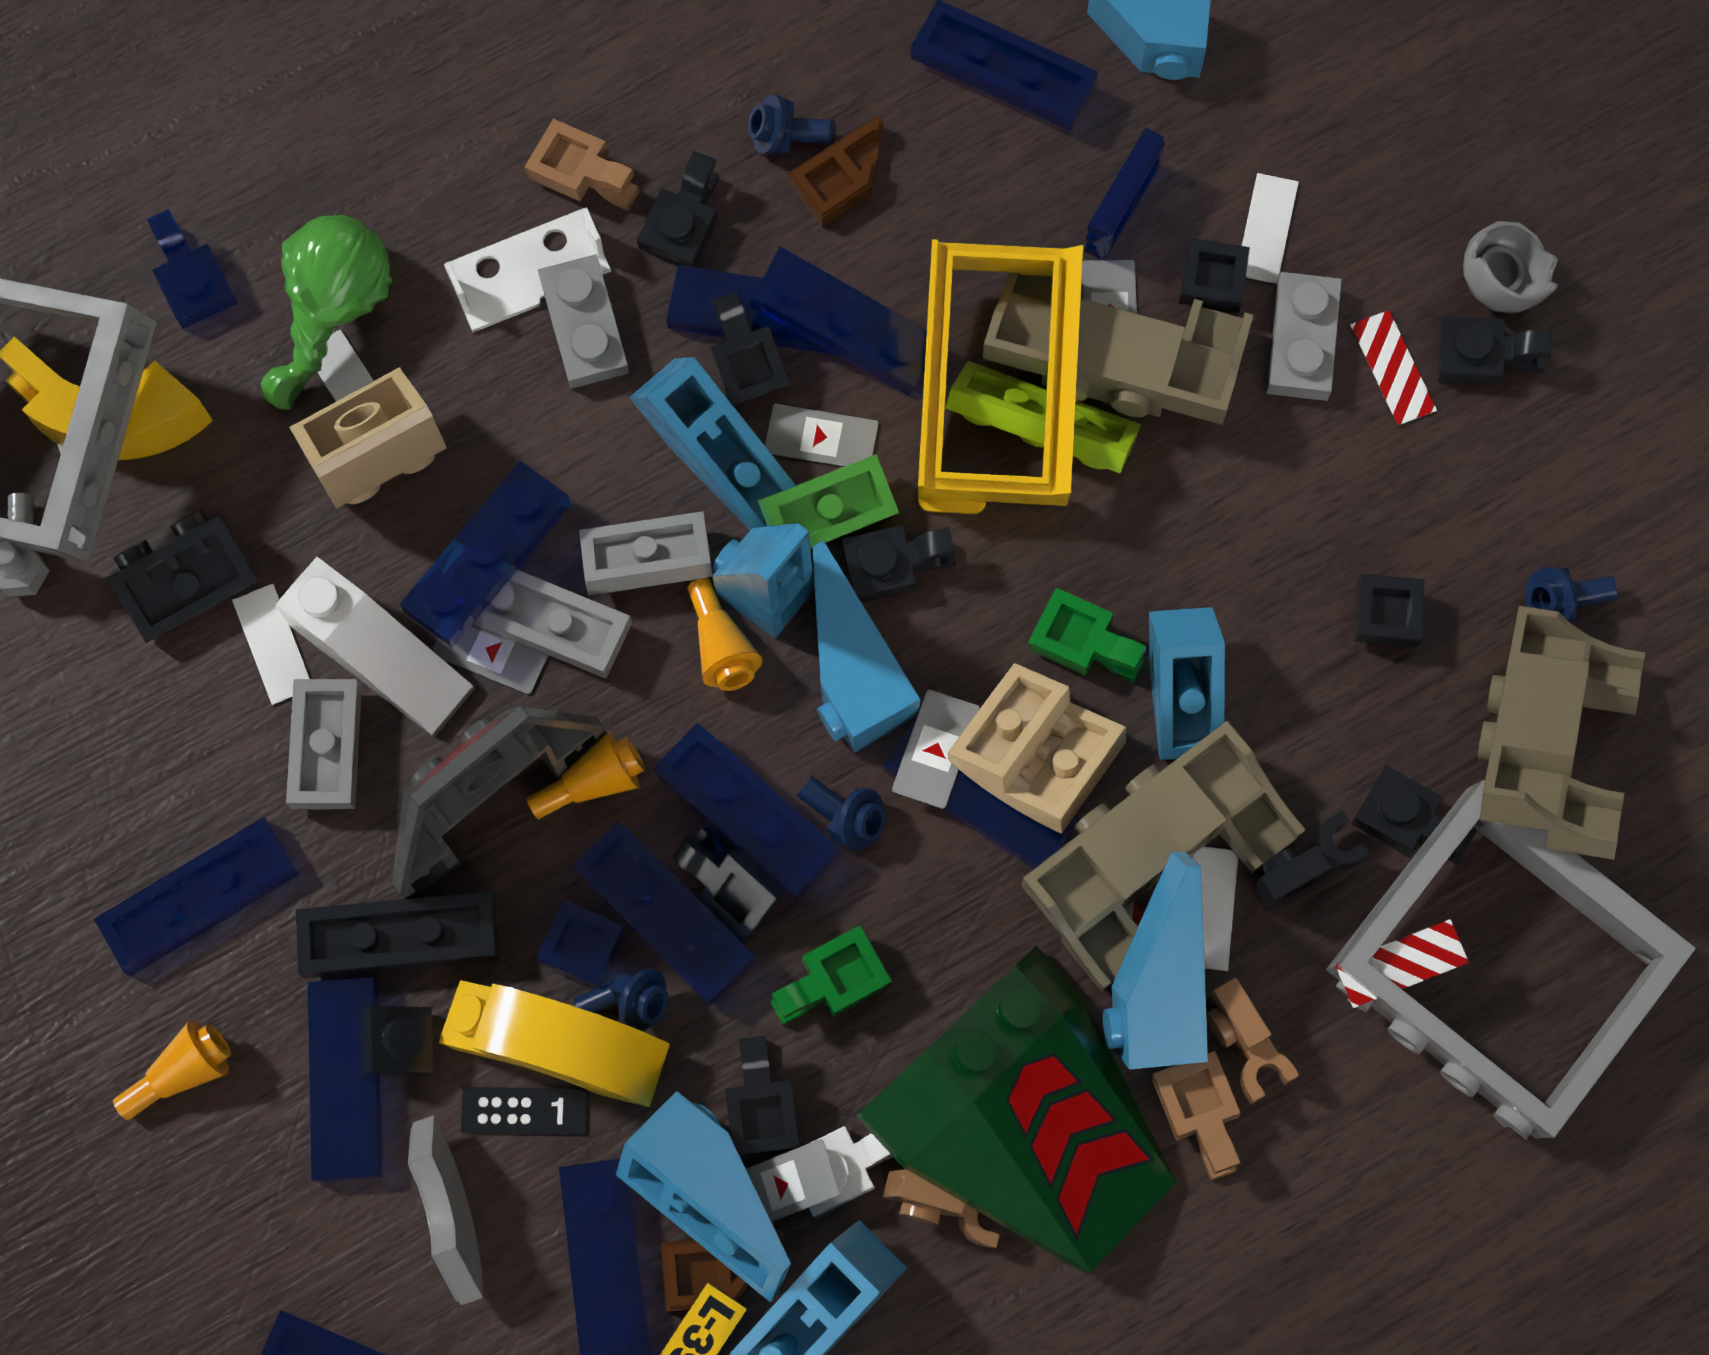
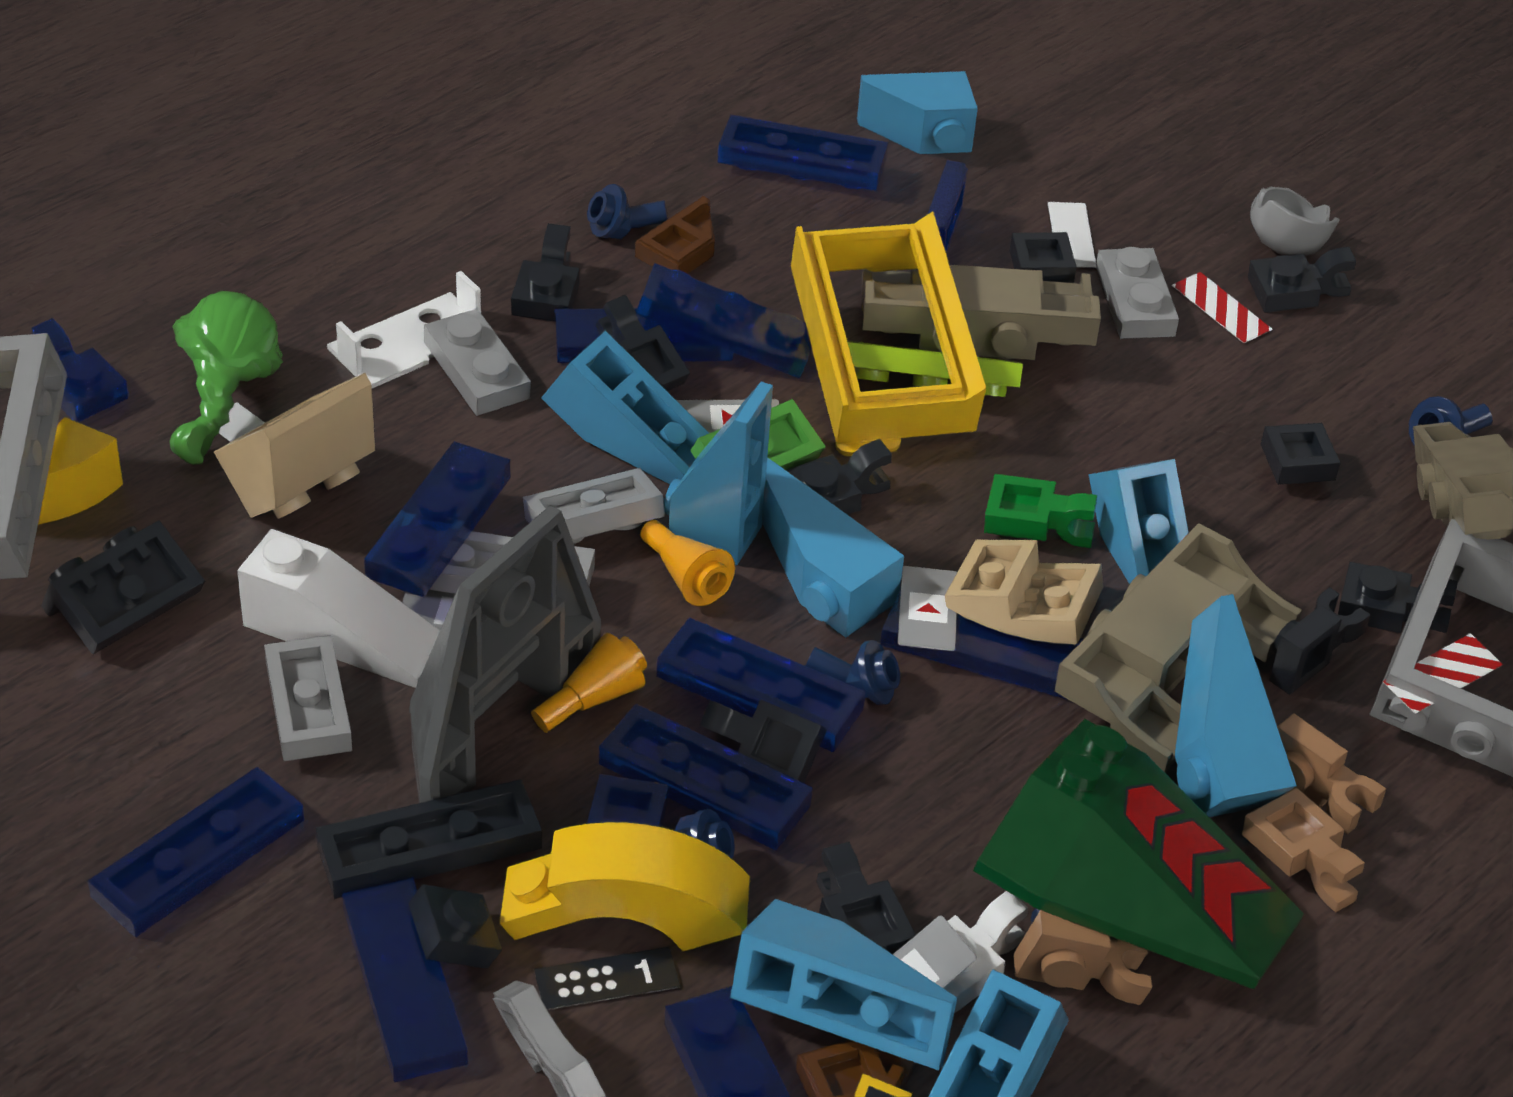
camera: 20 degrees left, 30 degrees down
(188, 1061) = (225, 984): light orange cone -> none
(270, 642) = (226, 639): white sticker -> none
(575, 161) = (437, 253): medium nougat plate -> none
(839, 974) = (897, 793): green plate -> none

